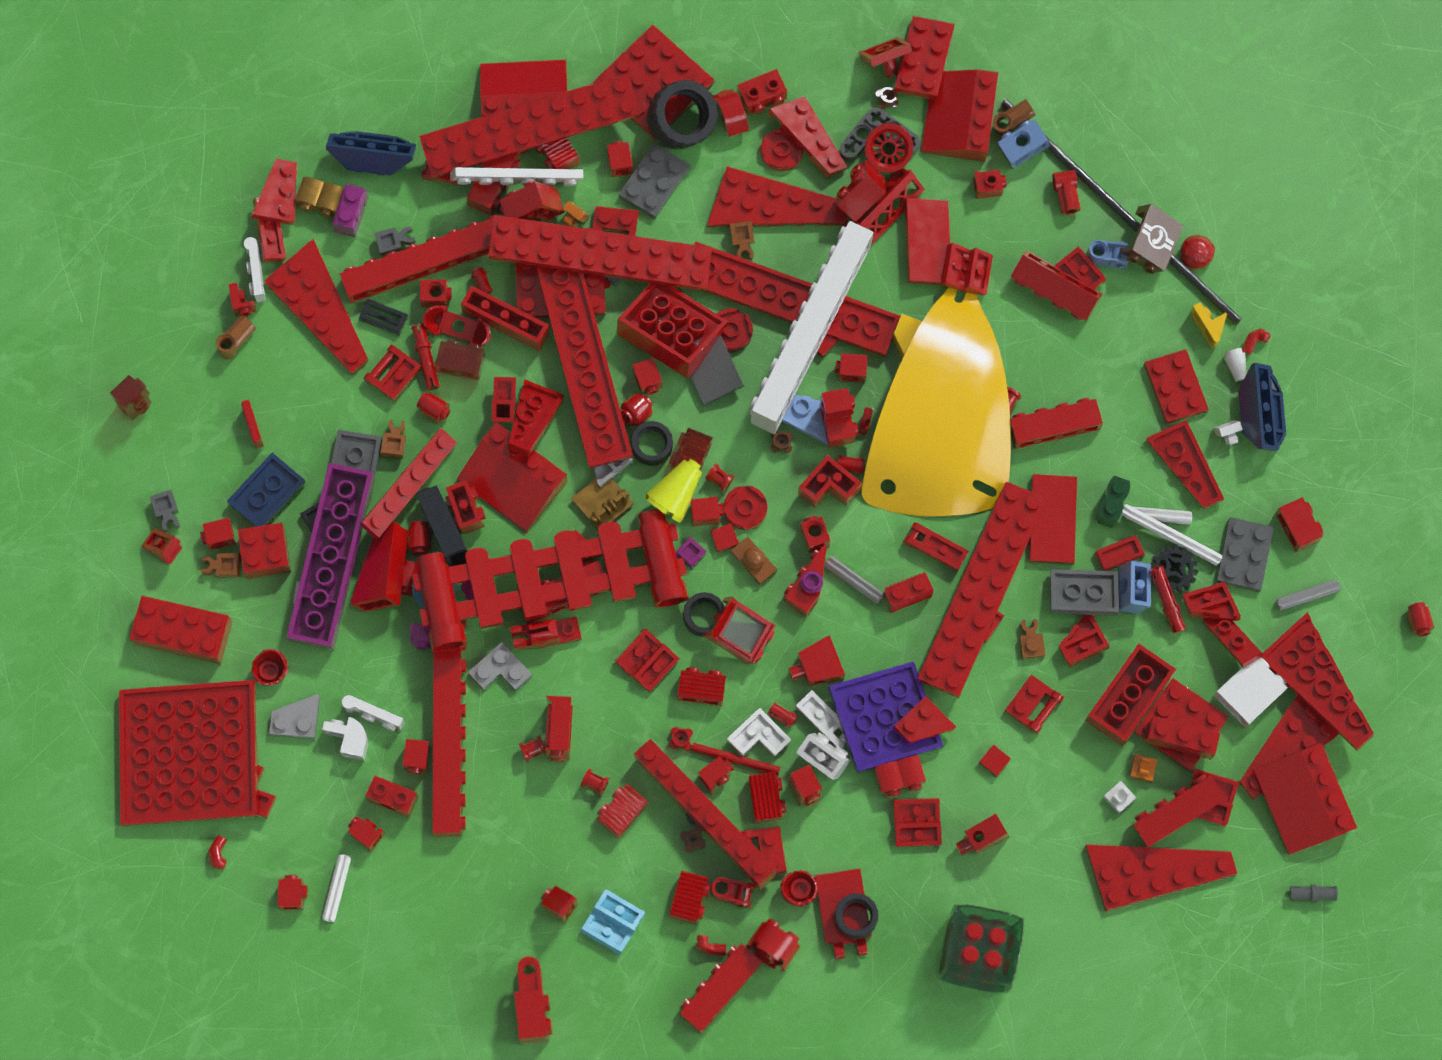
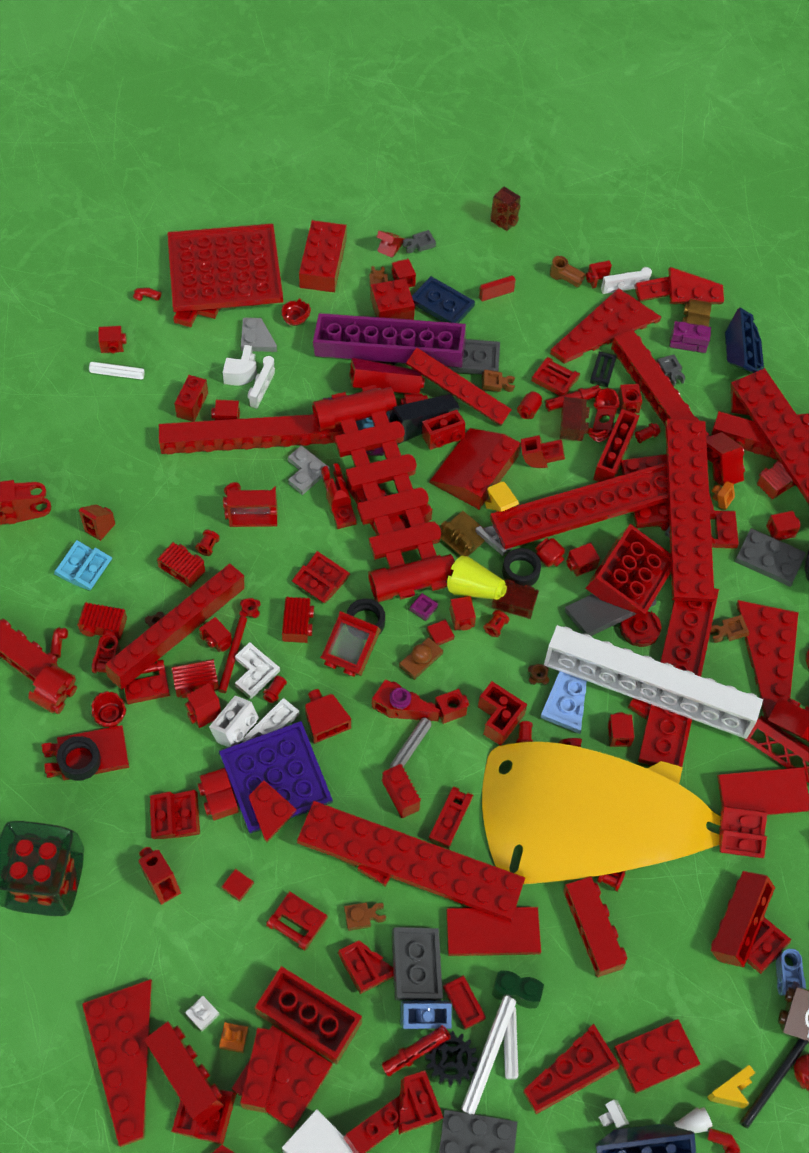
camera: 85 degrees right, 15 degrees down
(365, 832) = (160, 383): red brick -> none
(507, 176) = (744, 434): white plate -> none
(533, 415) = (534, 473): red wing -> none
(571, 452) = (500, 497): none -> yellow slope
(745, 507) = (471, 649): red tile -> none
(836, 413) = (566, 712): red brick -> none

